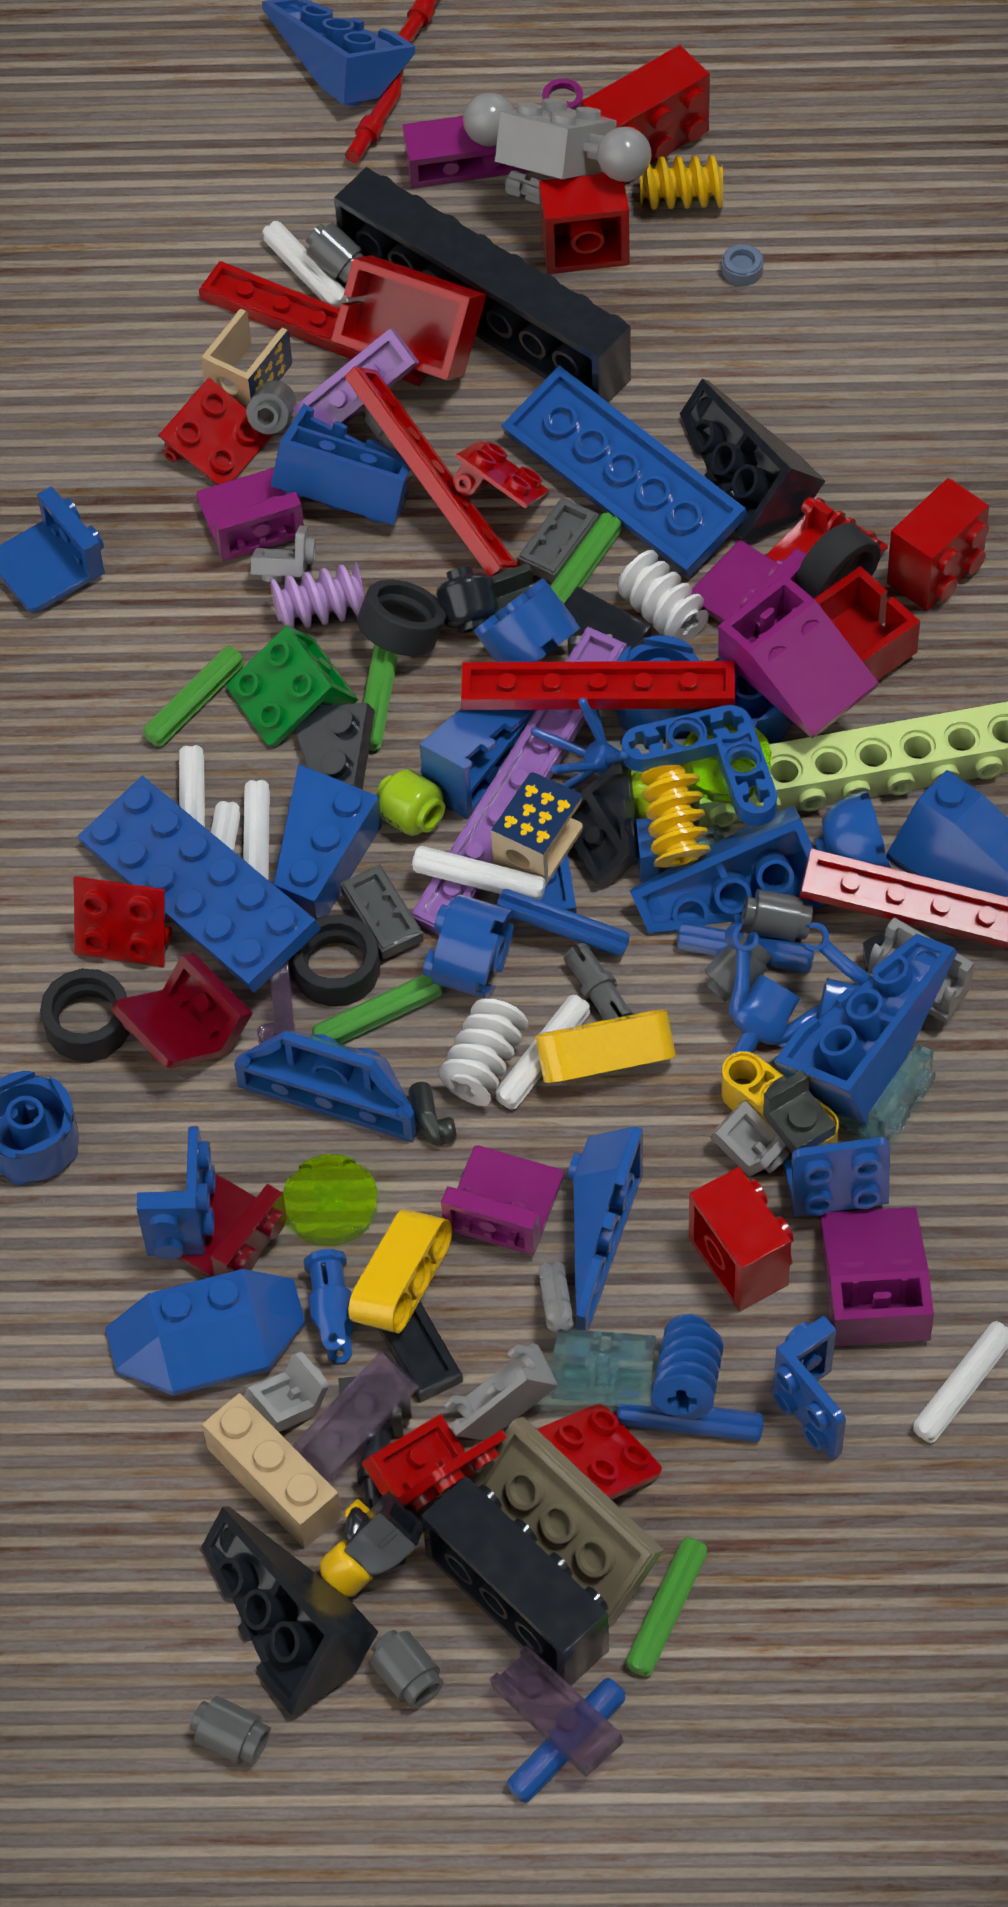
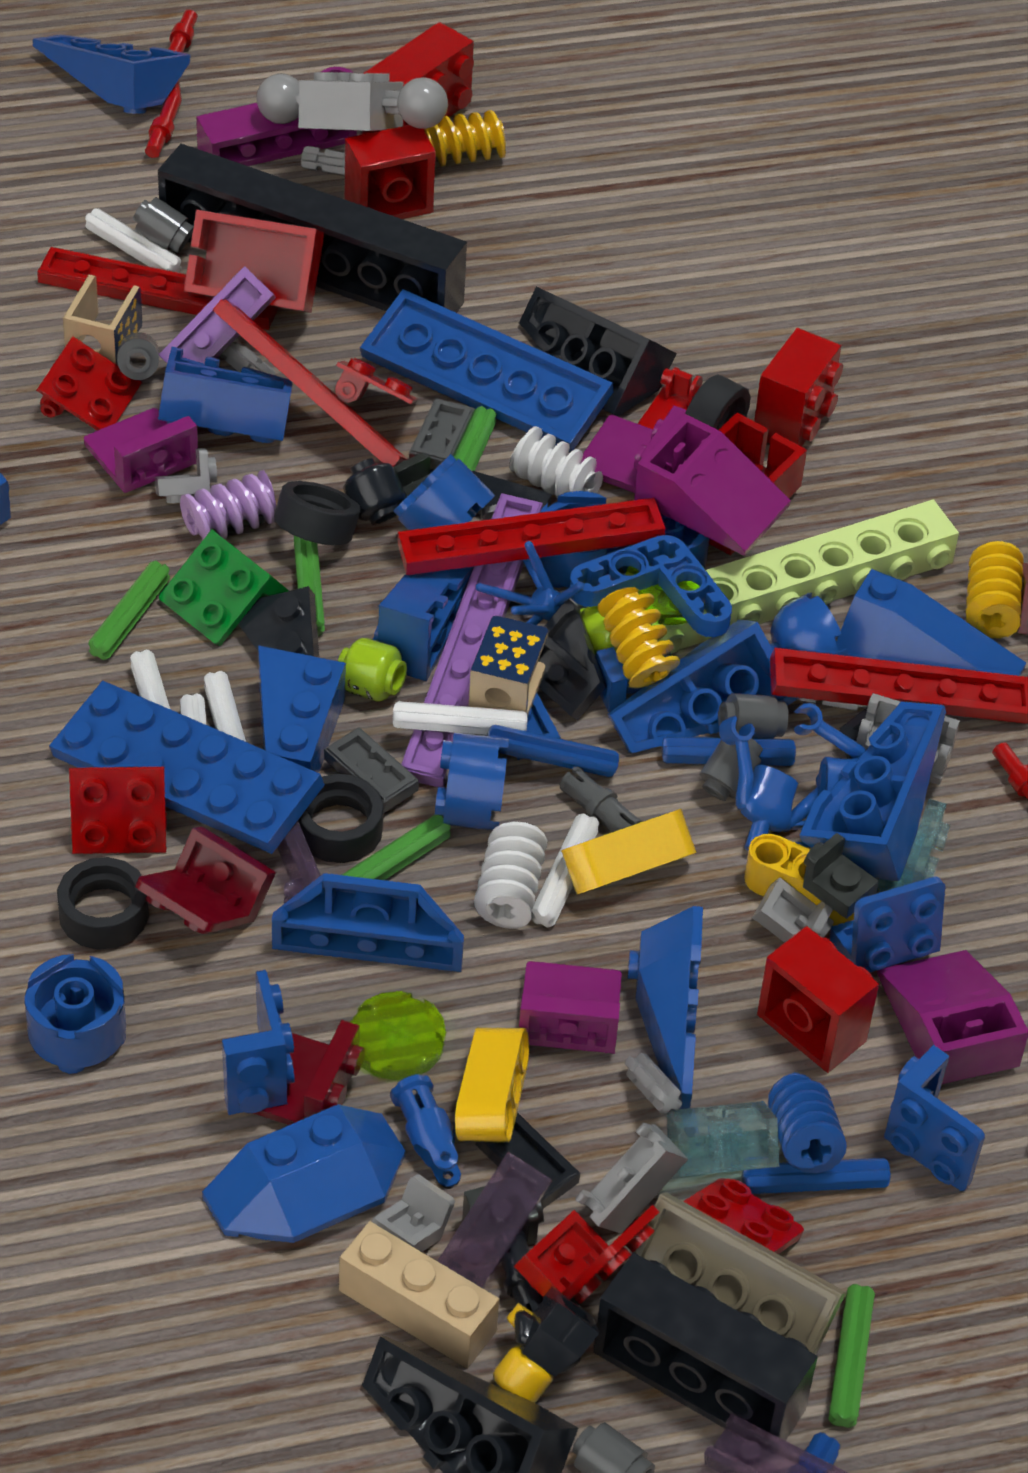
camera: 20 degrees left, 10 degrees down
(425, 1115) = (480, 953): pearl dark grey arm -> none
(742, 265) = (537, 200): sand blue tile -> none

